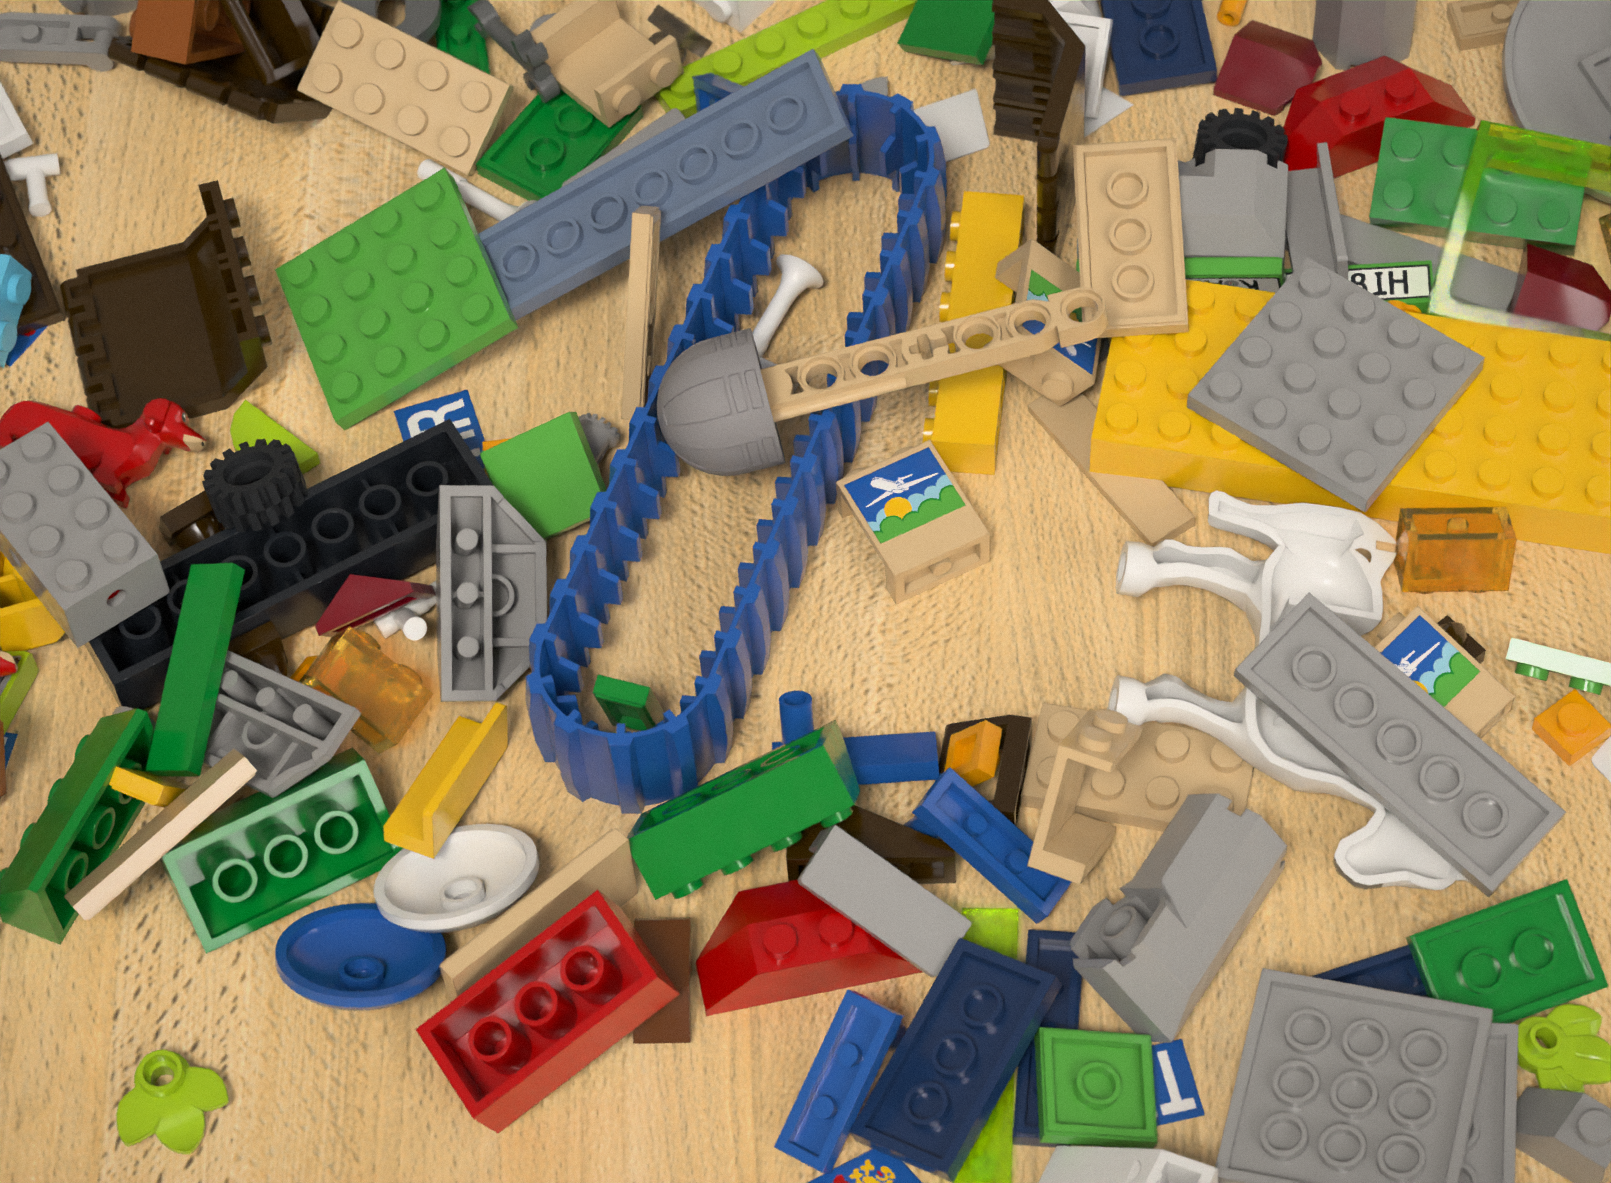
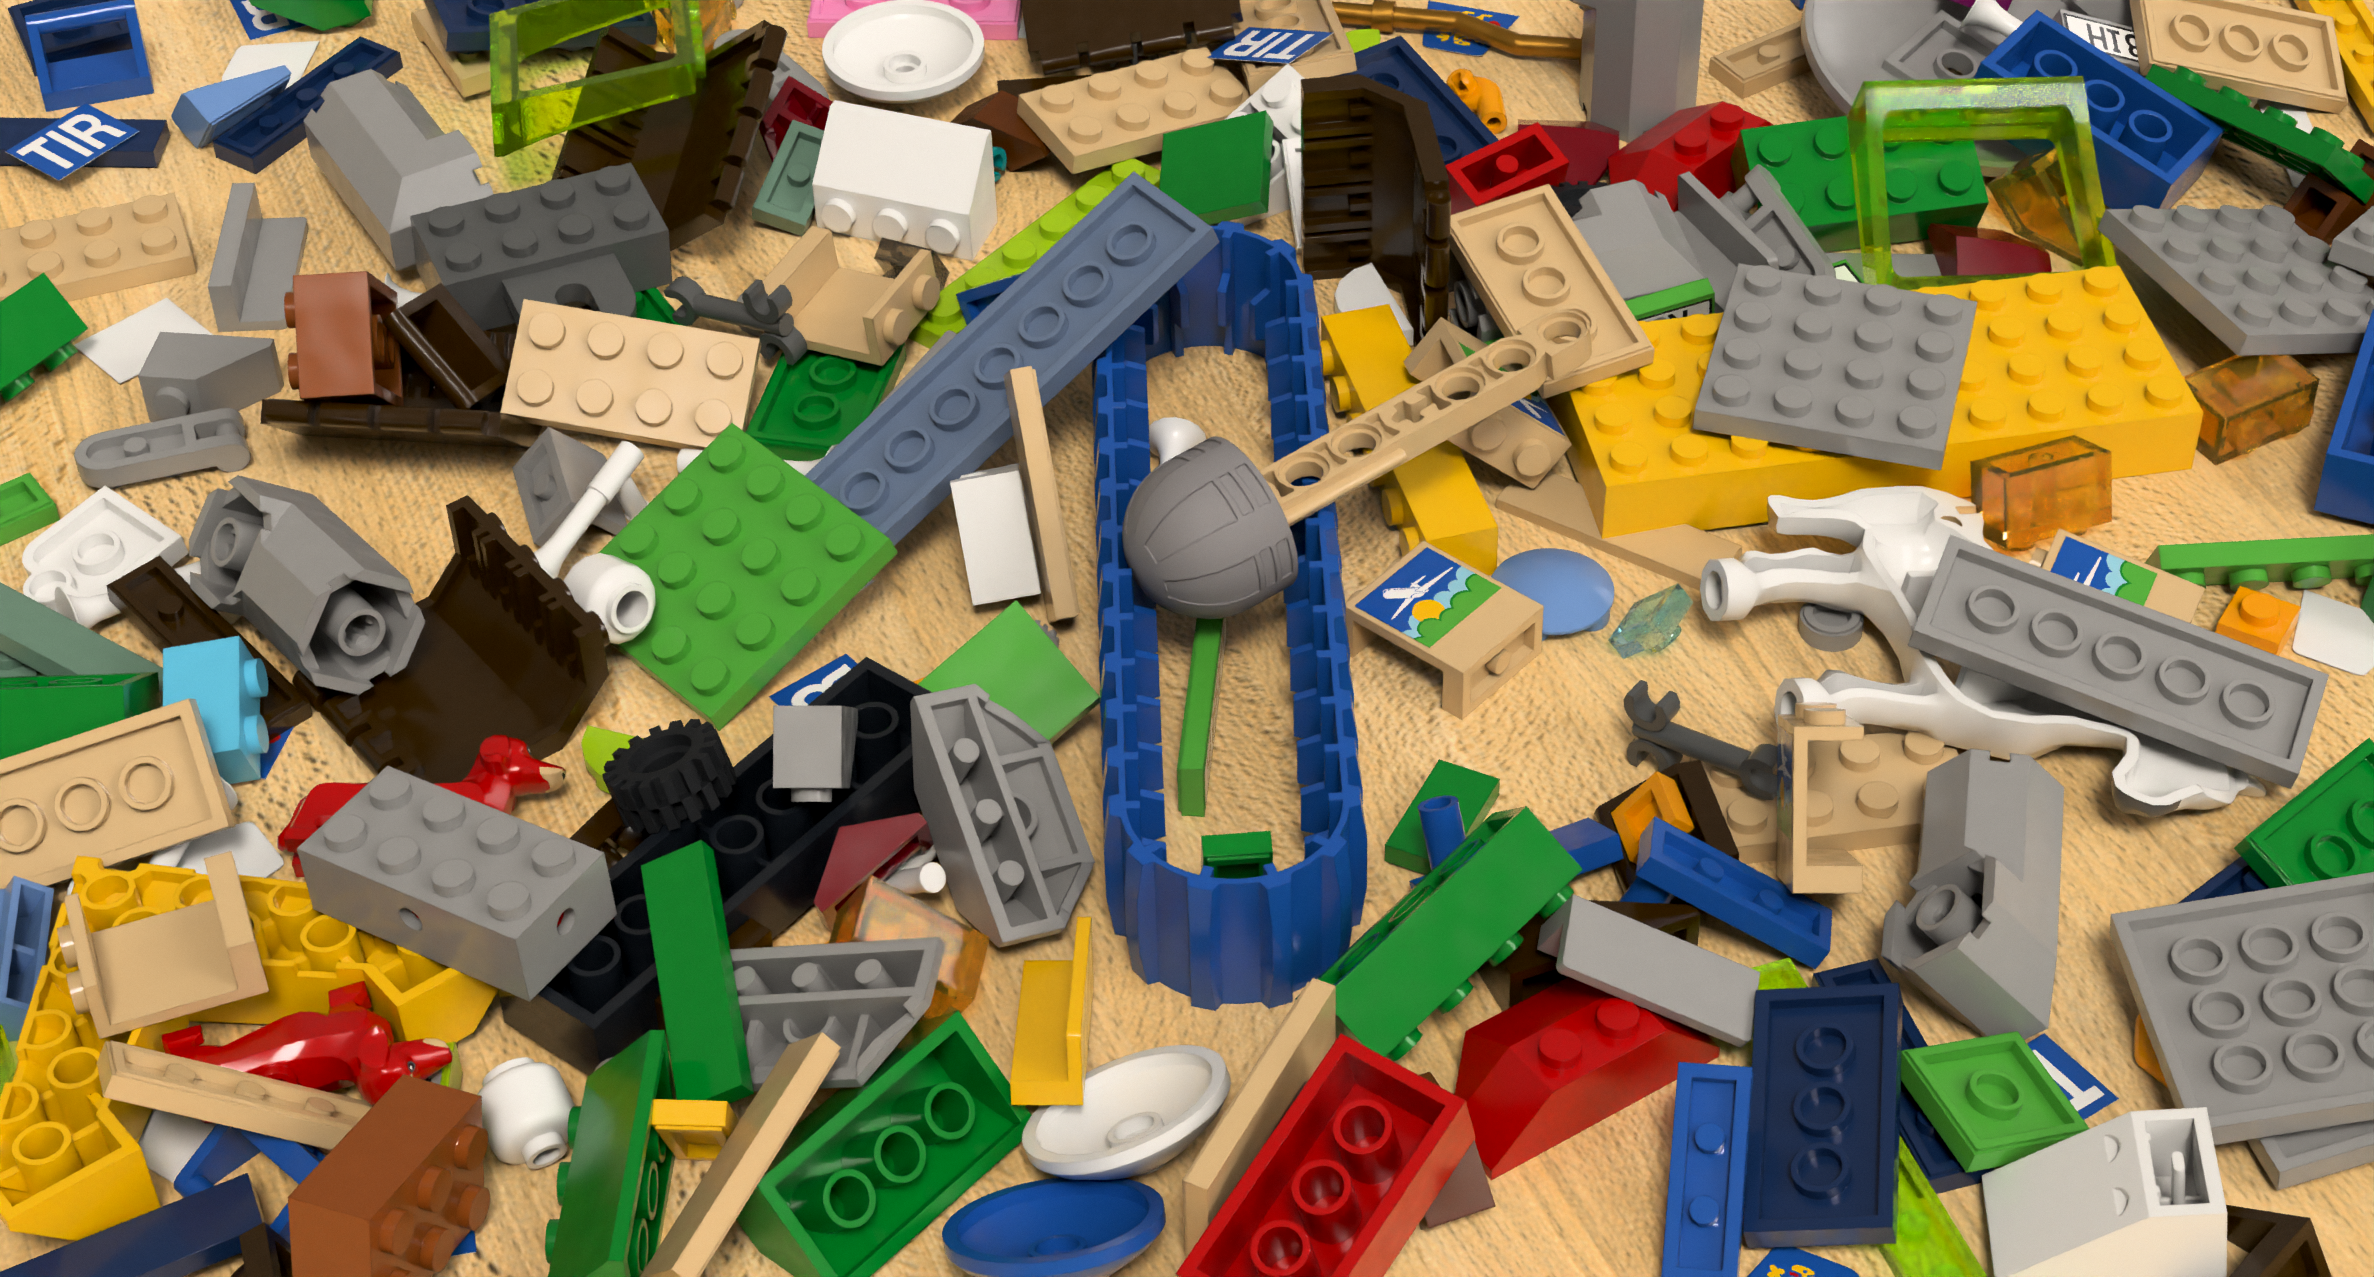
camera: 25 degrees left, 15 degrees down
(55, 725) = (526, 1112): none -> white head
(83, 216) = (304, 583): none -> light grey brick
(293, 298) = (615, 592): none -> white head
(327, 172) = (554, 479): none -> light grey panel
(348, 182) = (610, 481): none -> white piece
(361, 497) = (813, 750): none -> light grey slope
(599, 328) = (995, 535): none -> white hinge
(688, 545) = (1200, 715): none -> bright green tile
(838, 685) = (1475, 796): none -> green tile
(1019, 176) = (1366, 289): none -> white tile
(1024, 510) = (1568, 585): none -> medium blue dish
(1028, 688) = (1670, 740): none -> dark grey bar
(1079, 568) = (1652, 622): none -> clear light blue plate
(1183, 93) = (1506, 168): none -> red brick
(1223, 617) = (1829, 628): none -> light grey tile
(1370, 229) = (1777, 224): none -> light grey plate

